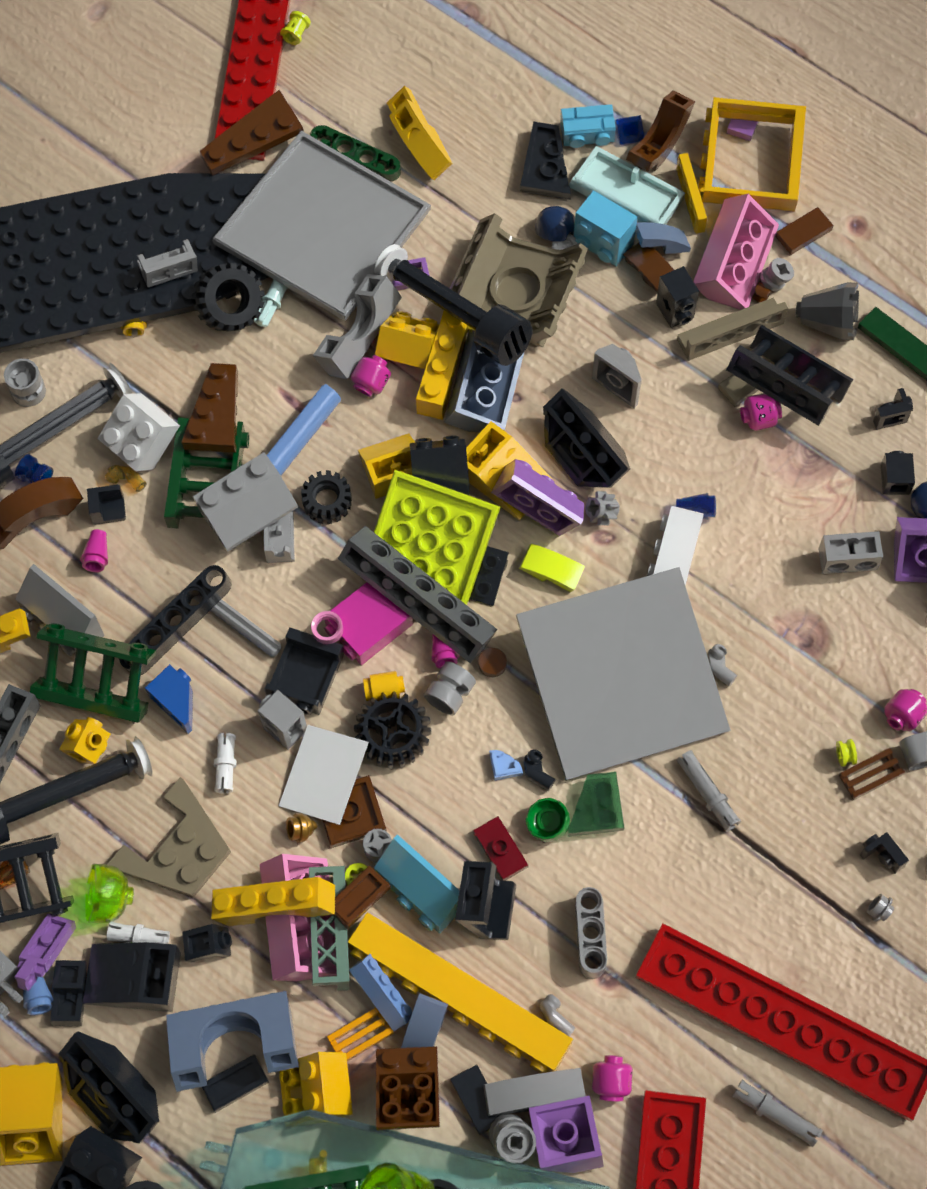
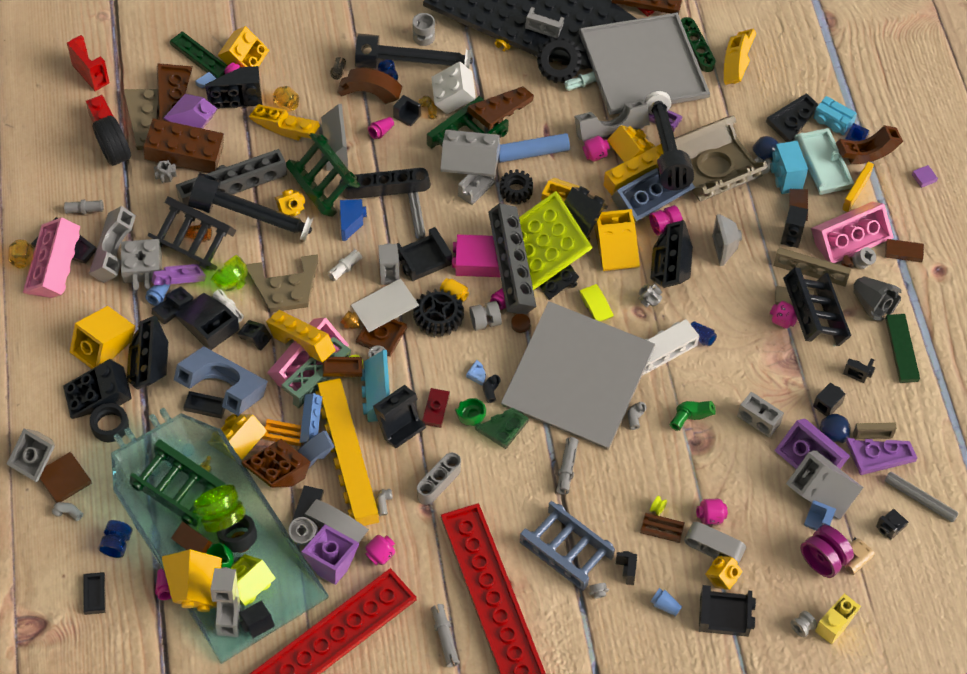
camera: 40 degrees right, 10 degrees down
(323, 616) = (452, 232): bright pink piece -> none
(529, 404) = (661, 218): none -> dark pink wheel
(539, 497) = (620, 262): slope -> none
(656, 234) = (823, 199): sand blue slope -> none
(761, 112) = (915, 155): yellow window -> none
(772, 609) = (692, 411): none -> green arm
(788, 913) = (563, 564): none -> sand blue fence

